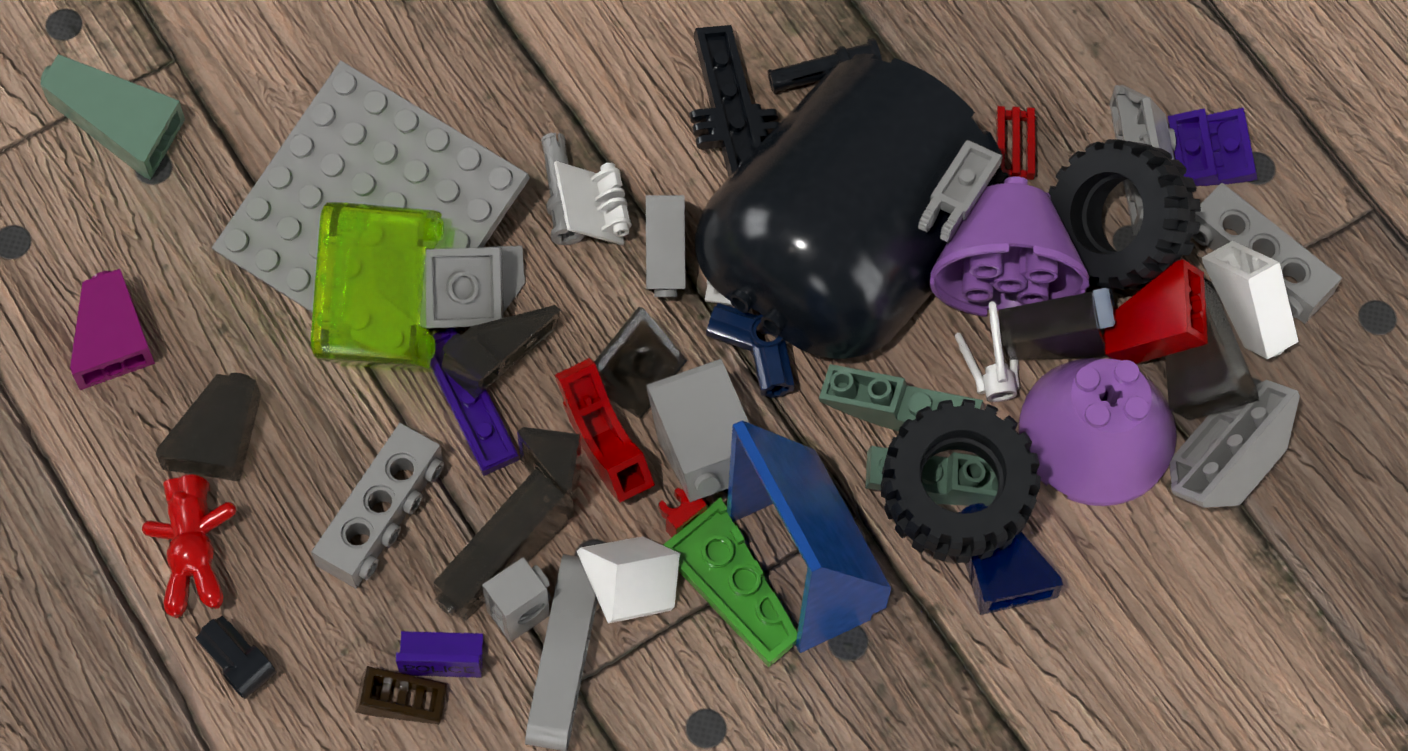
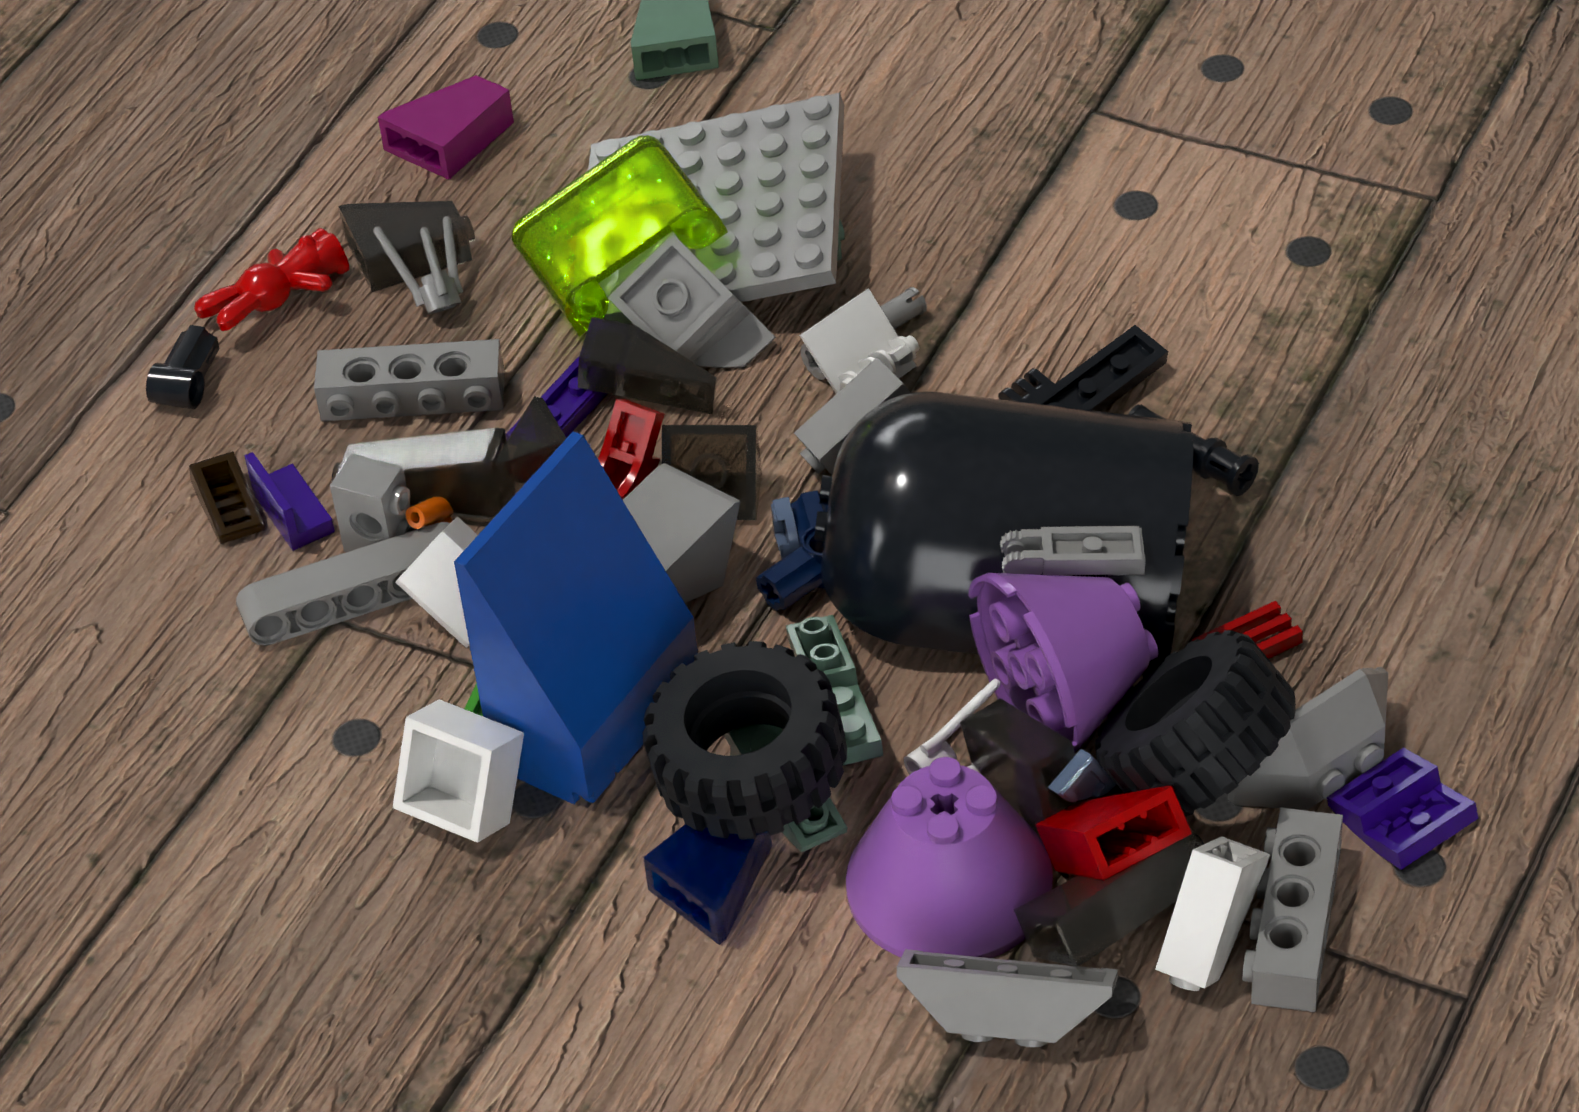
camera: 65 degrees right, 20 degrees down
(294, 433) = (439, 289): none -> light grey plant
(547, 563) = (429, 512): none -> orange arm
(723, 347) = (784, 526): none -> sand blue tile
(828, 676) = (458, 770): none -> white piece

